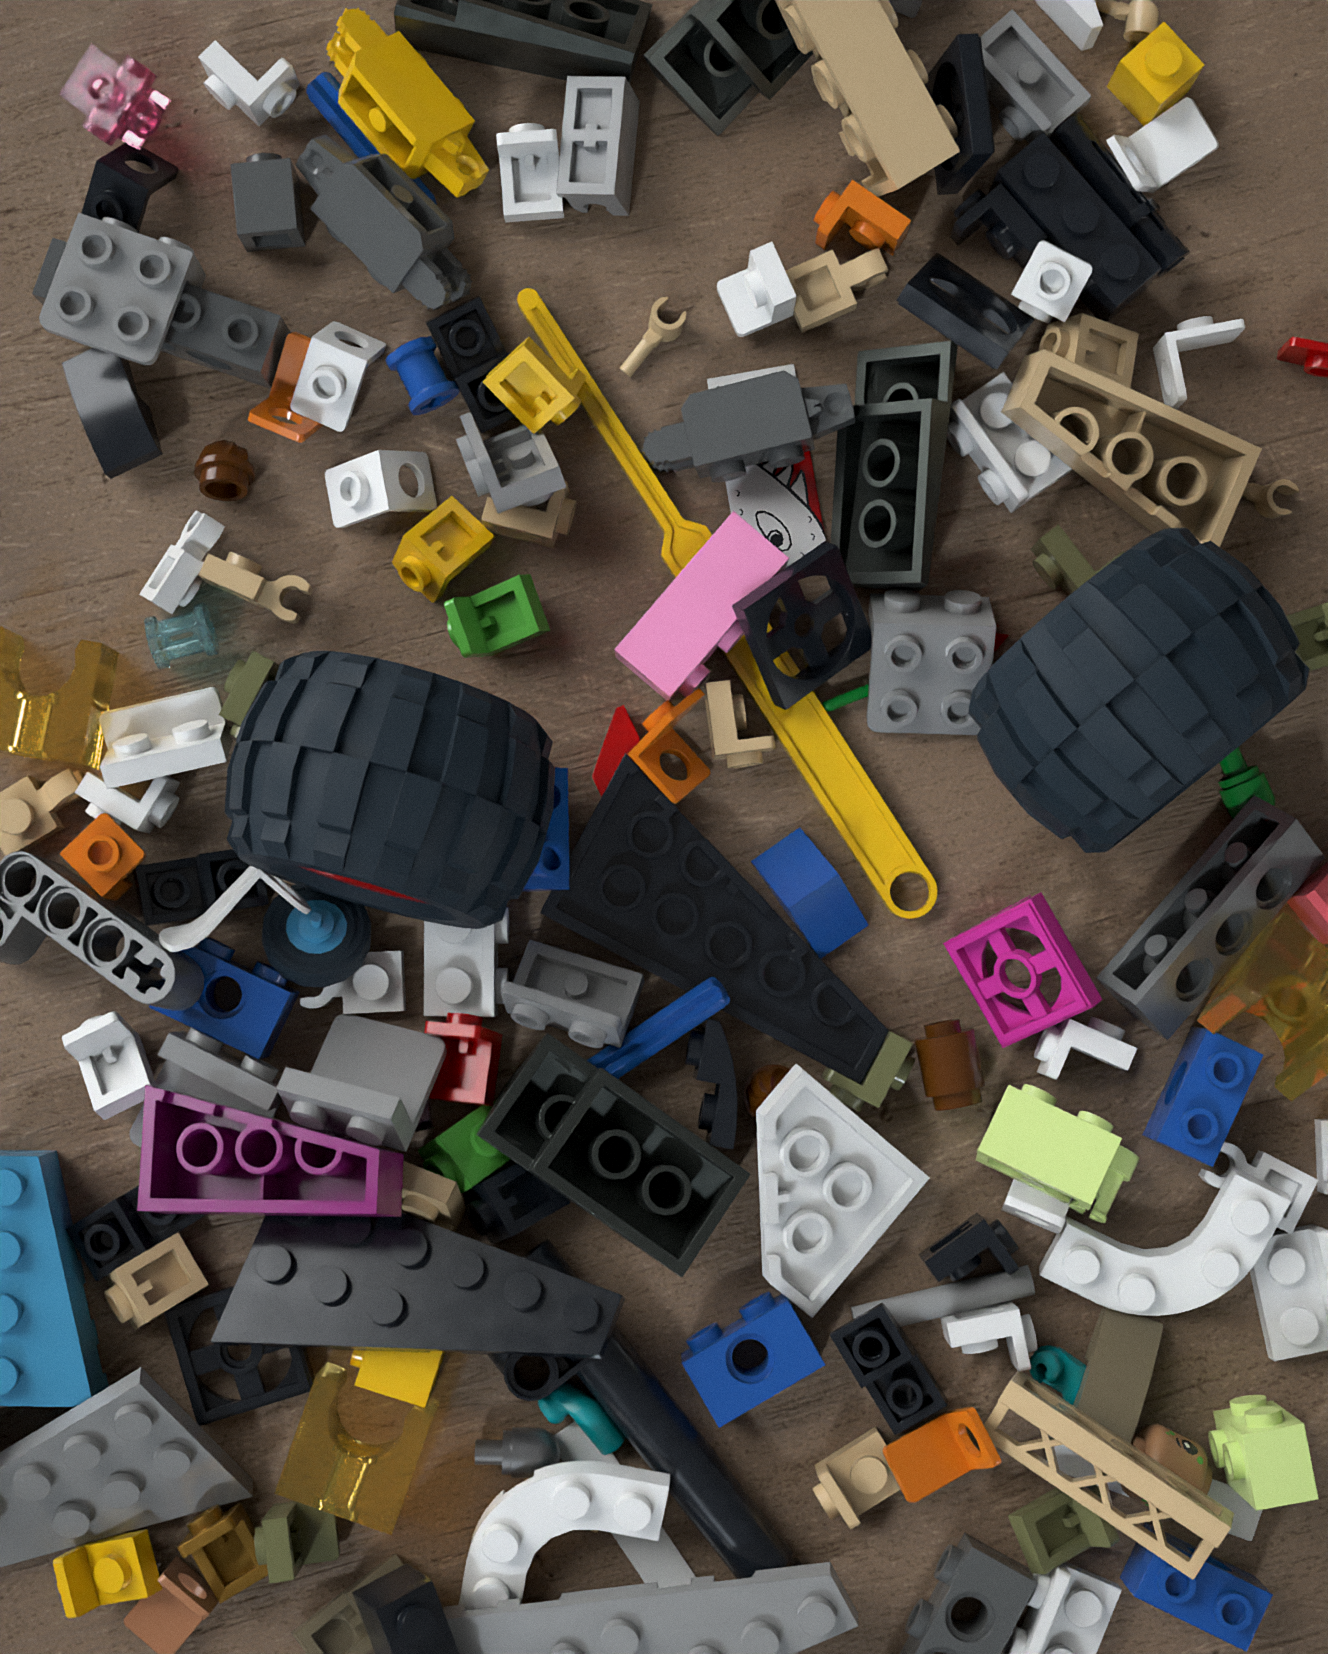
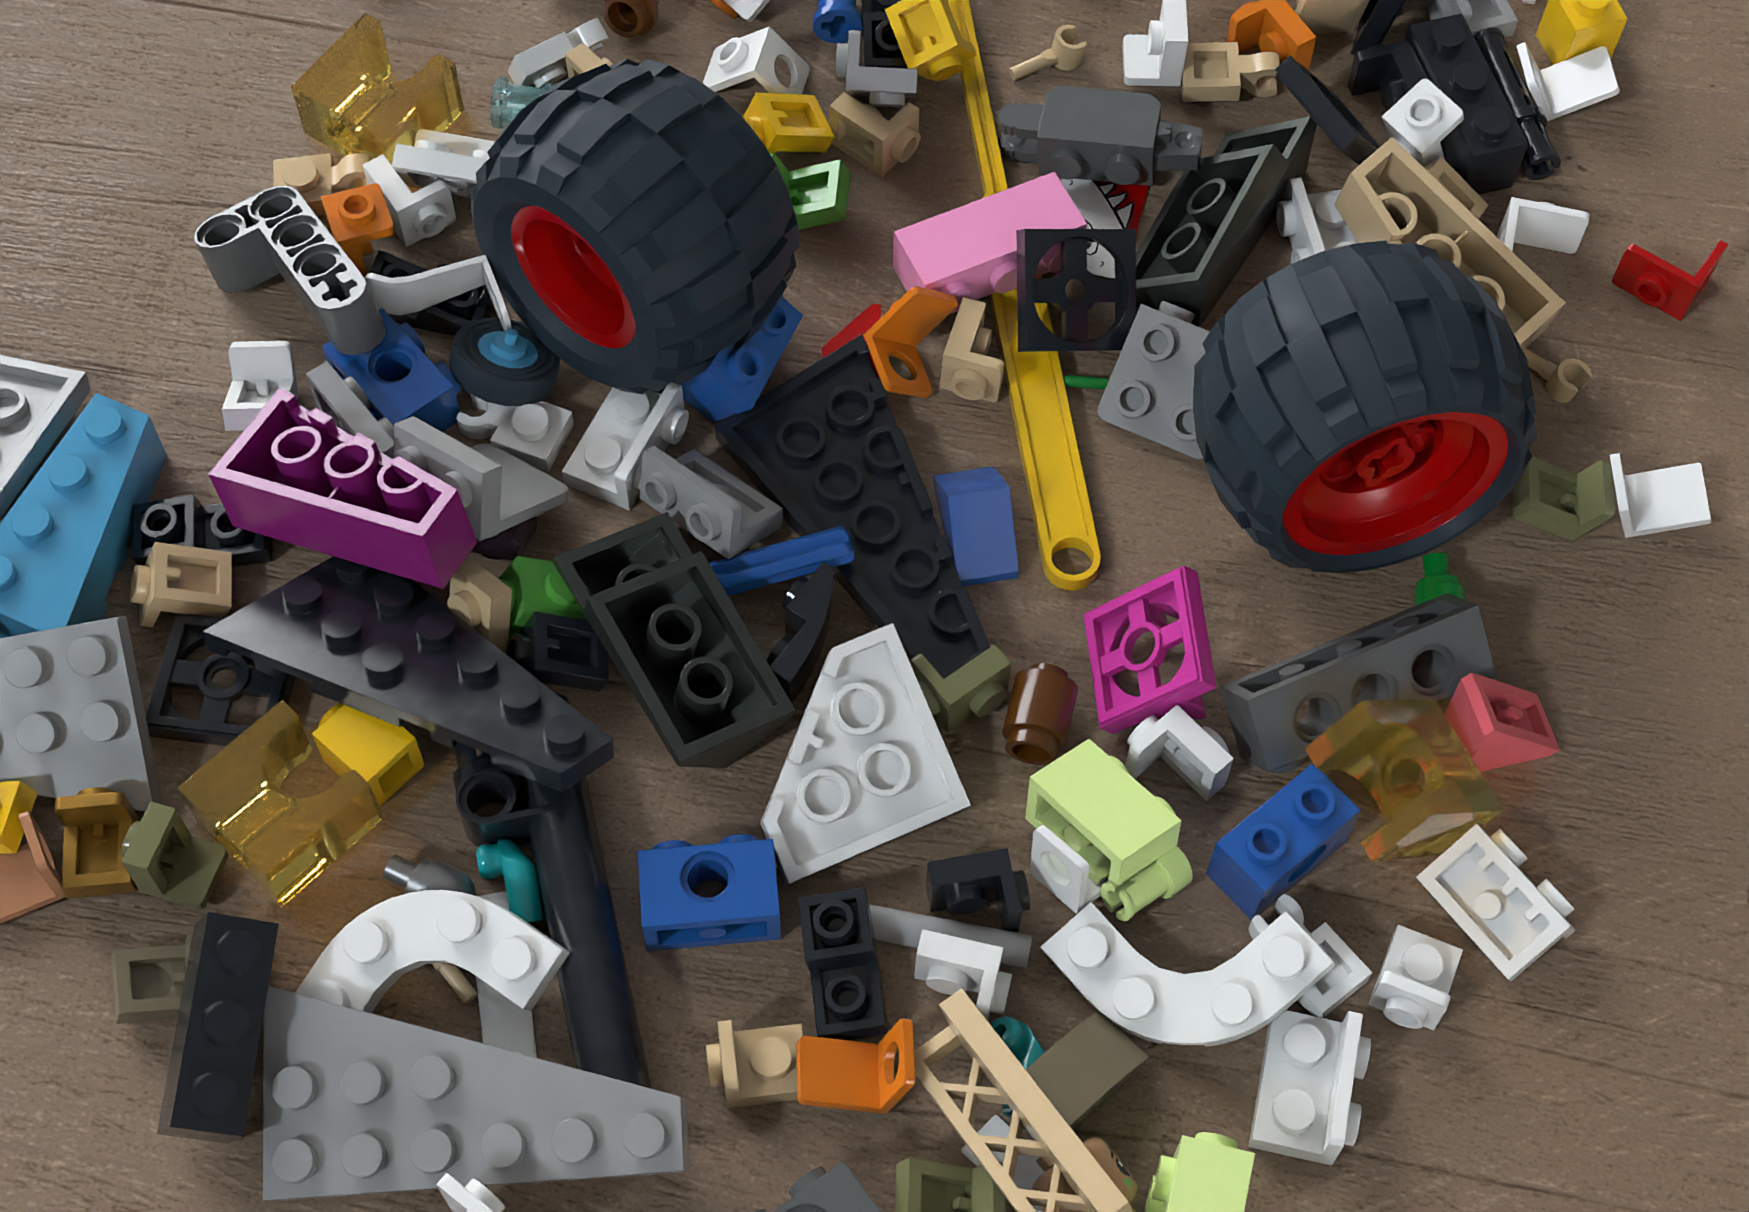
camera: 25 degrees right, 25 degrees down
(470, 1061) = (587, 515): red bracket -> none

